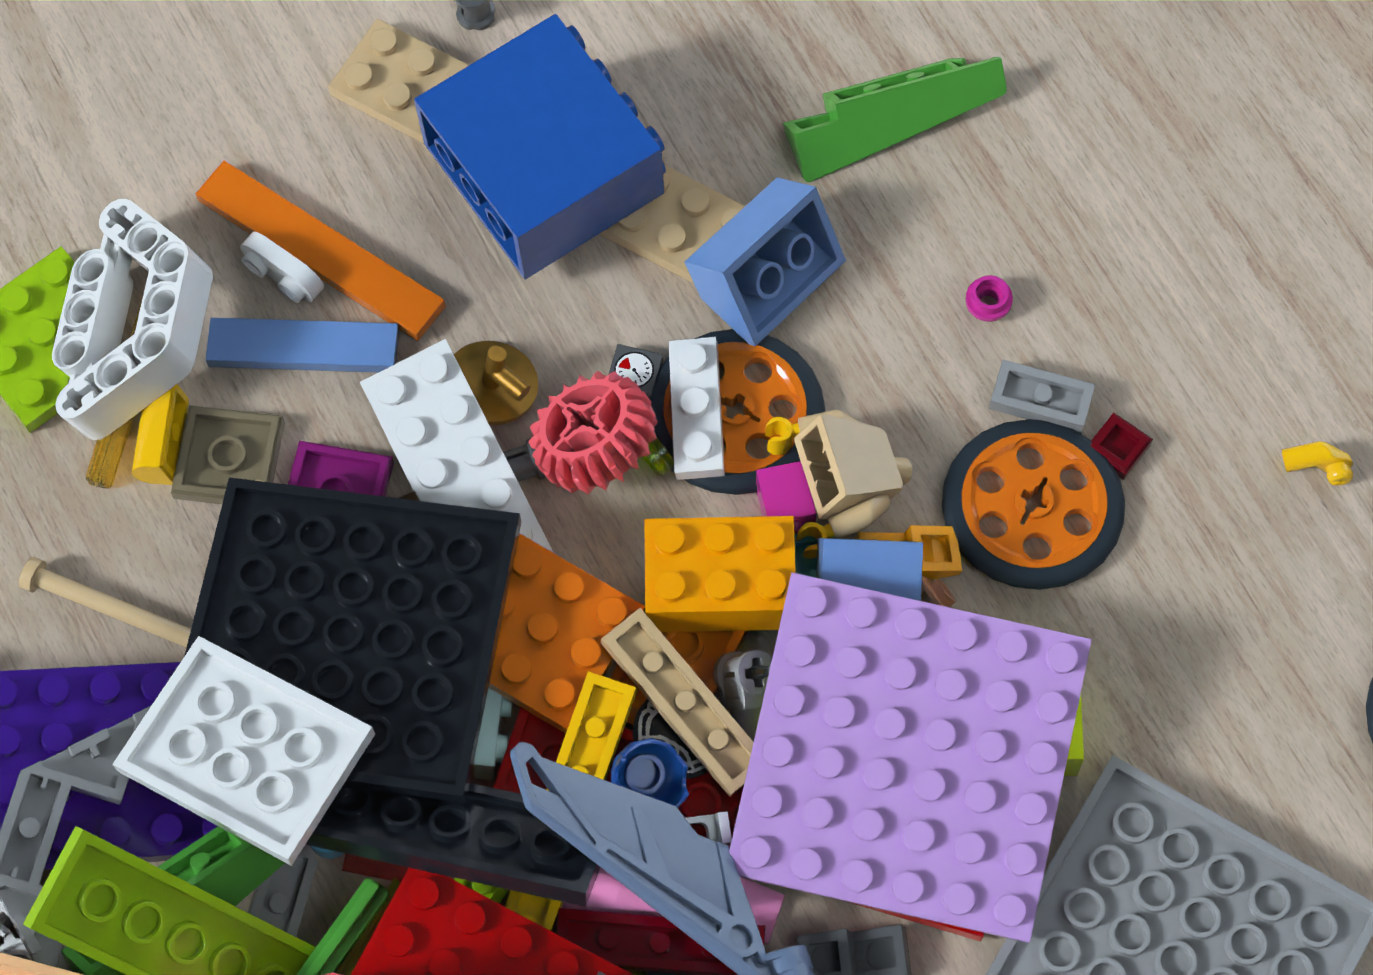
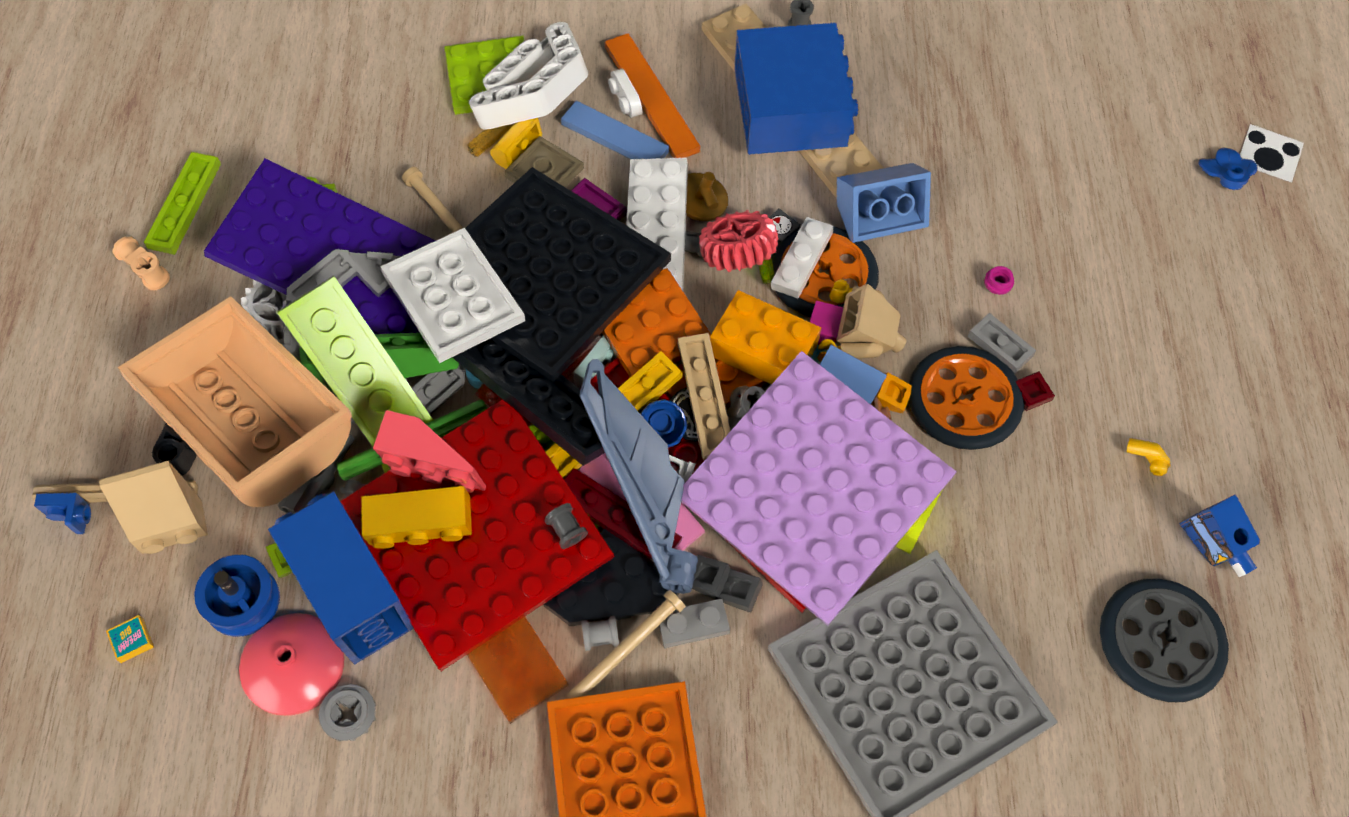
camera: 25 degrees right, 5 degrees down
(889, 110) = (996, 163): bright green wedge -> none

